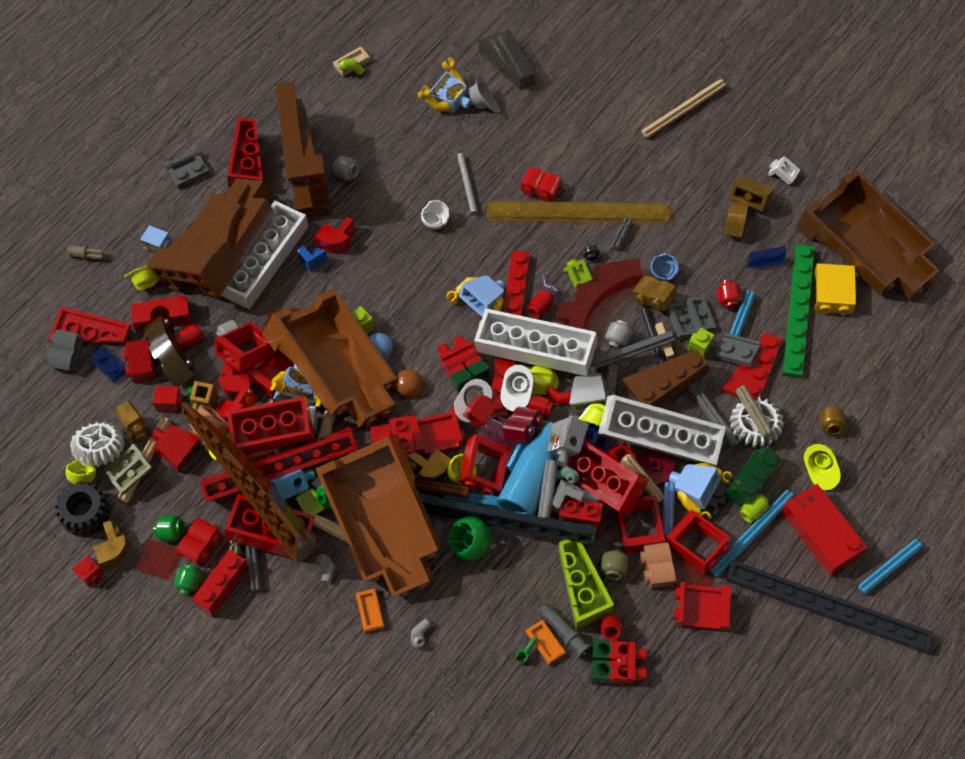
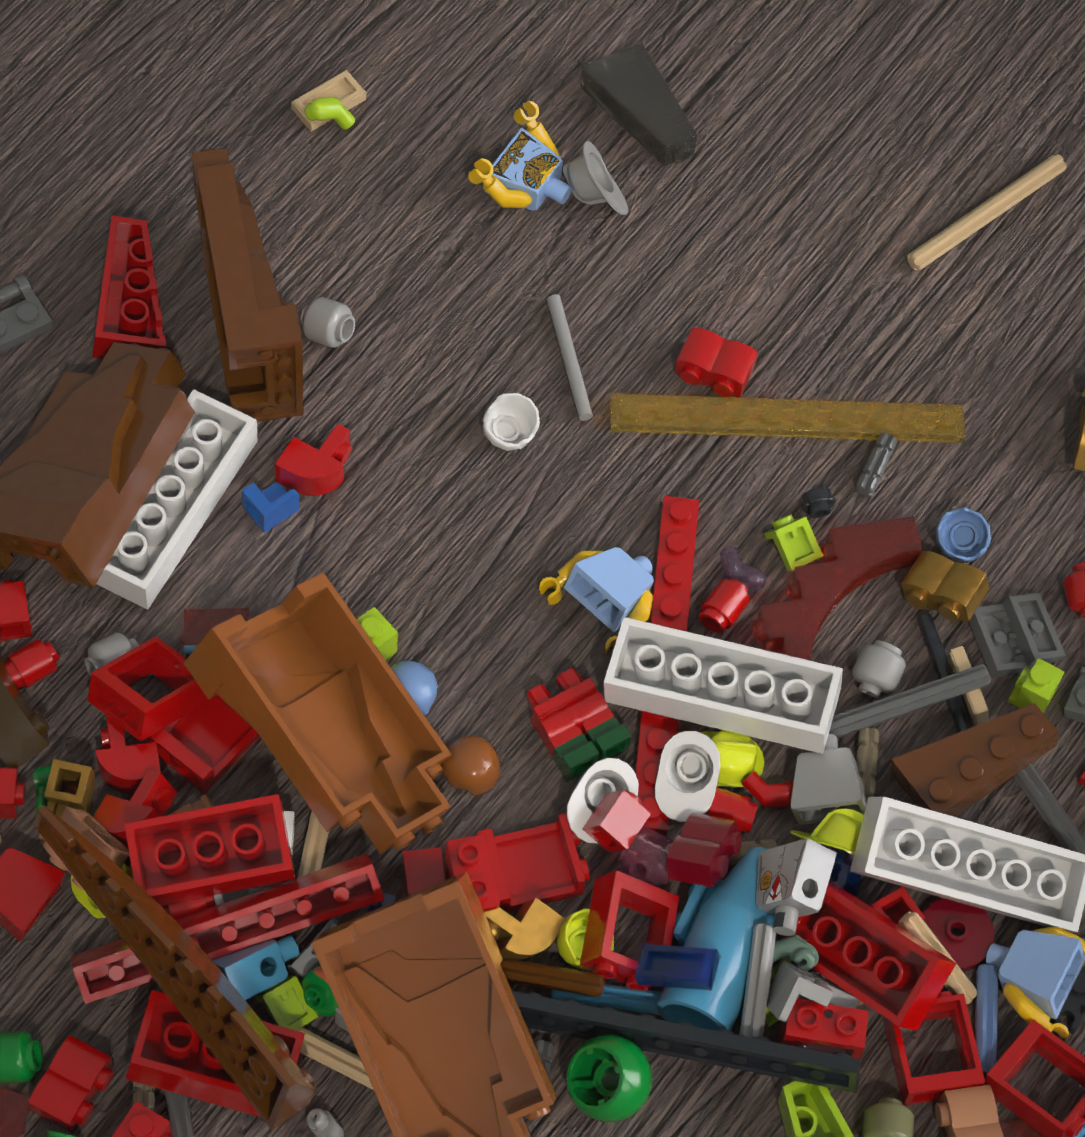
camera: 10 degrees left, 0 degrees up
(291, 385) = (248, 770): torso -> none
(506, 482) = (677, 967): none -> clear blue tile

